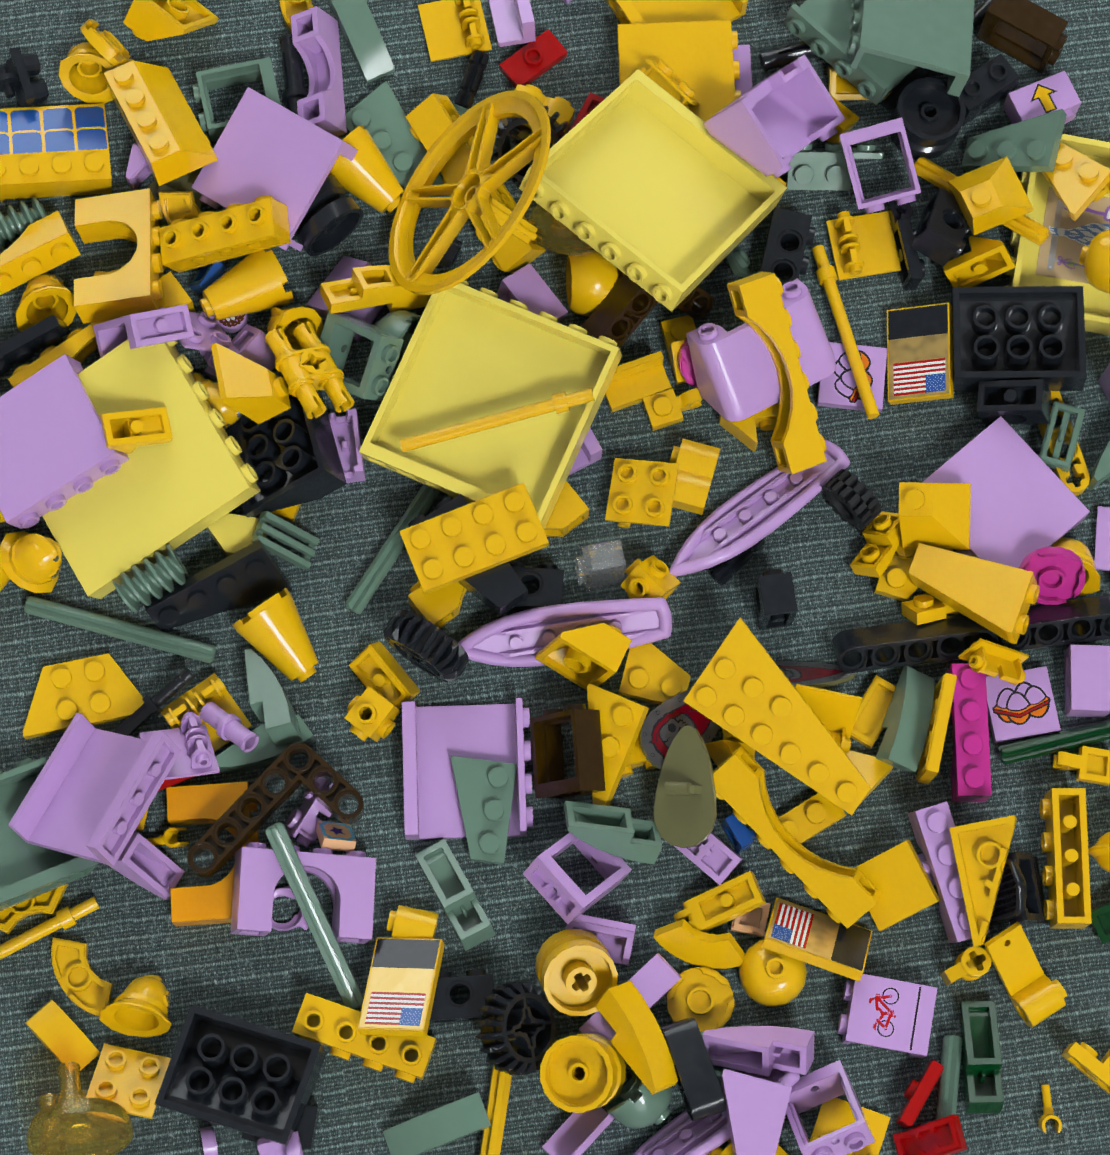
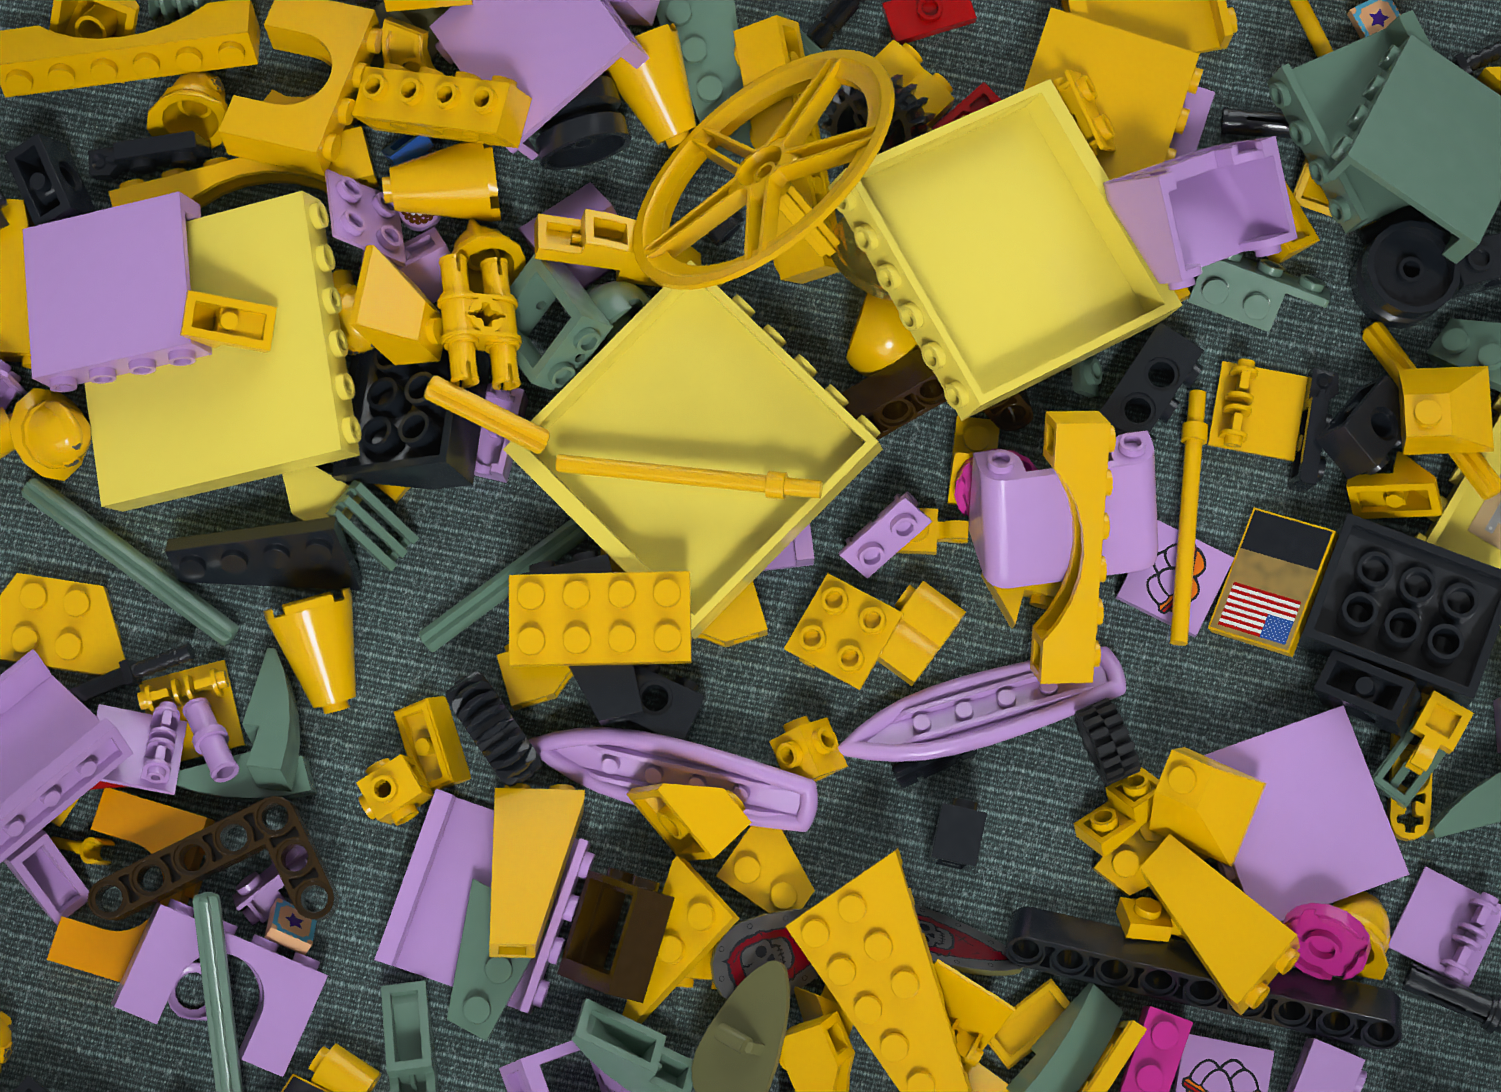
camera: 25 degrees right, 5 degrees up
(145, 329) = (291, 196): lavender panel -> none
(151, 579) = (183, 519): sand green piece -> none
(340, 429) = (486, 414): none -> yellow axle
(484, 725) = (528, 861): none -> yellow slope
(530, 289) = (804, 323): lavender hinge -> none
(601, 565) = (752, 707): clear brick -> none
(637, 380) = (889, 476): yellow panel -> none
(645, 418) = (886, 535): none -> lavender hinge
(868, 133) = (1316, 271): lavender window -> none
(995, 660) = (1208, 1024): yellow hinge -> none
(1070, 406) = (1439, 727): none -> yellow plate

